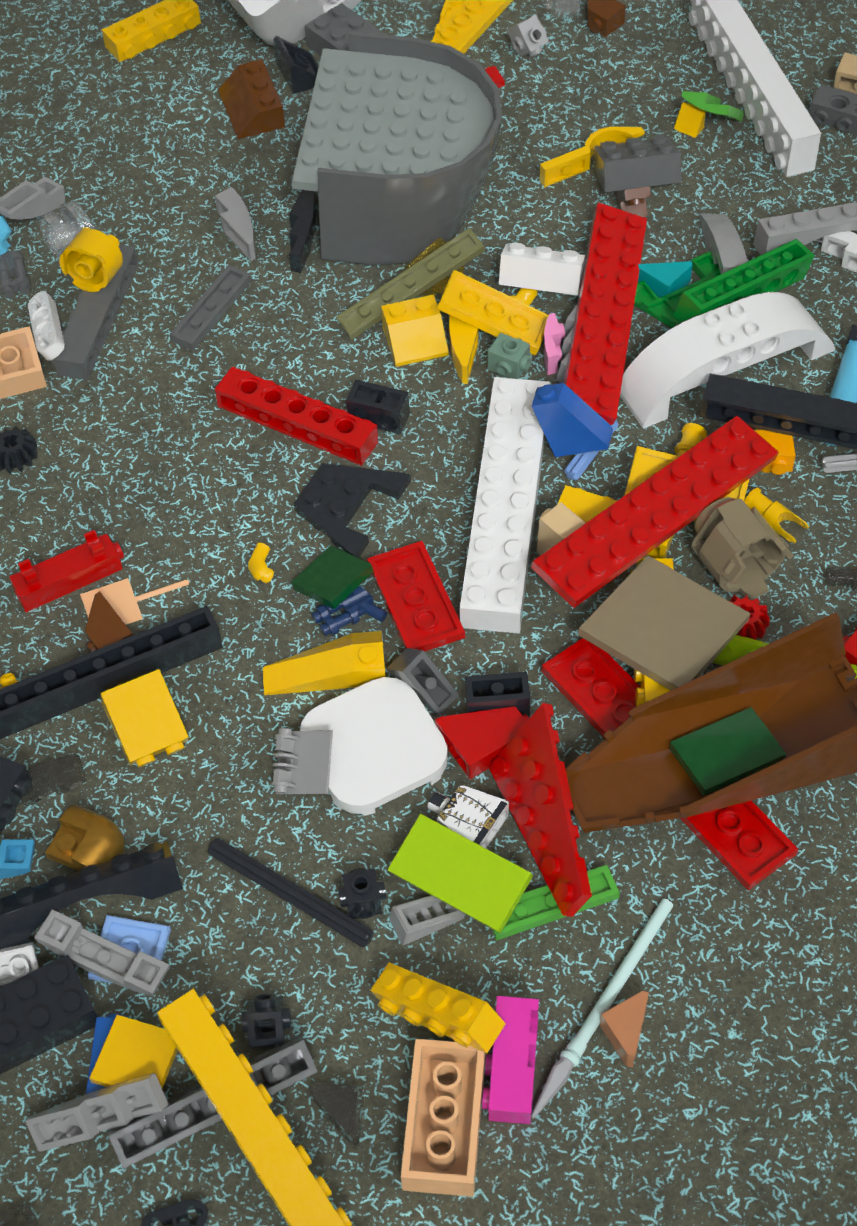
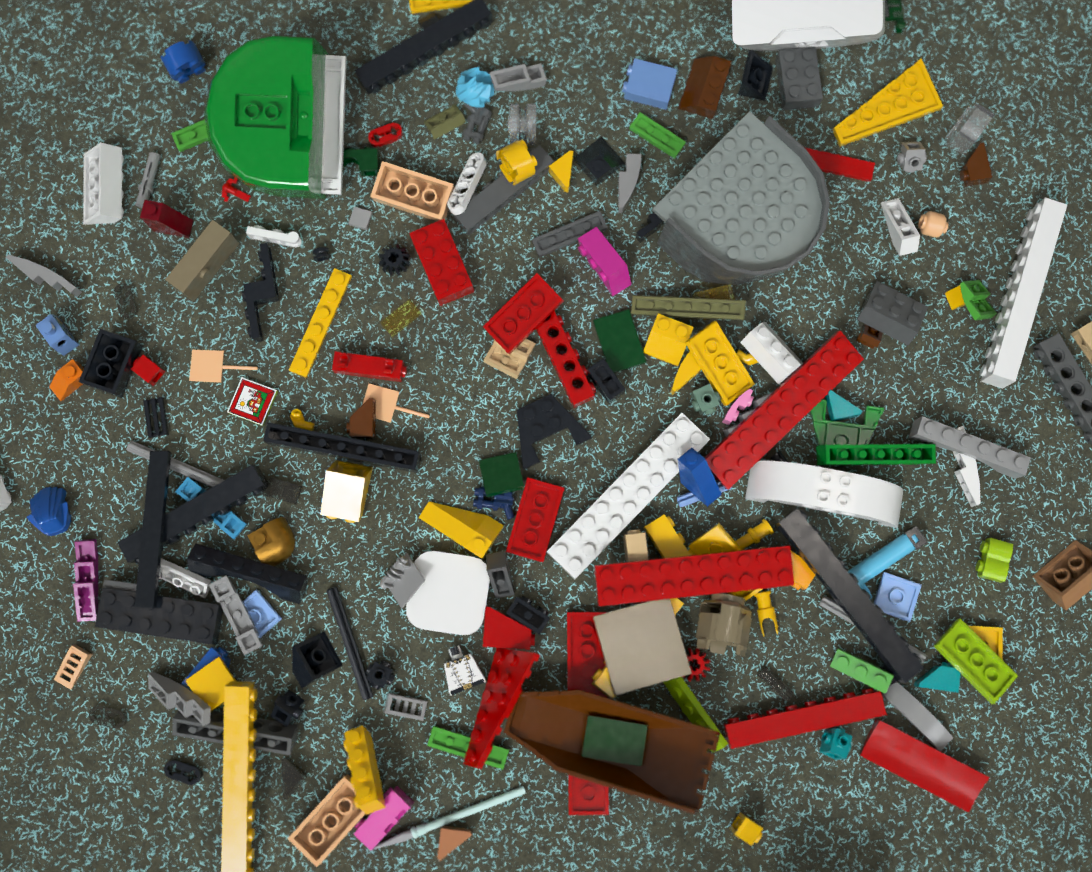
camera: 35 degrees right, 25 degrees up
(68, 505) = (400, 318): none -> clear yellow tile
(77, 416) = (442, 262): none -> red brick
(152, 256) = (561, 170): none -> yellow slope
(186, 131) = (649, 83): none -> medium blue brick
(187, 229) = (598, 161): none -> black slope
(221, 396) = (523, 313): none -> red plate
(235, 169) = (657, 135): none -> bright green plate
(235, 456) = (509, 364): none -> tan slope
(256, 943) = (314, 659): none -> black slope
(257, 564) = (470, 433): yellow arm -> none
(277, 302) = (604, 261): none -> dark pink wedge
(353, 360) = (619, 341): none -> dark green tile
(460, 873) = (432, 702): lime tile -> none
(576, 98) = (901, 228): none -> white slope
(579, 160) = (855, 279): yellow piece -> none
(604, 76) = (933, 224): none -> light nougat head
(722, 241) = (895, 409): light grey slope -> none

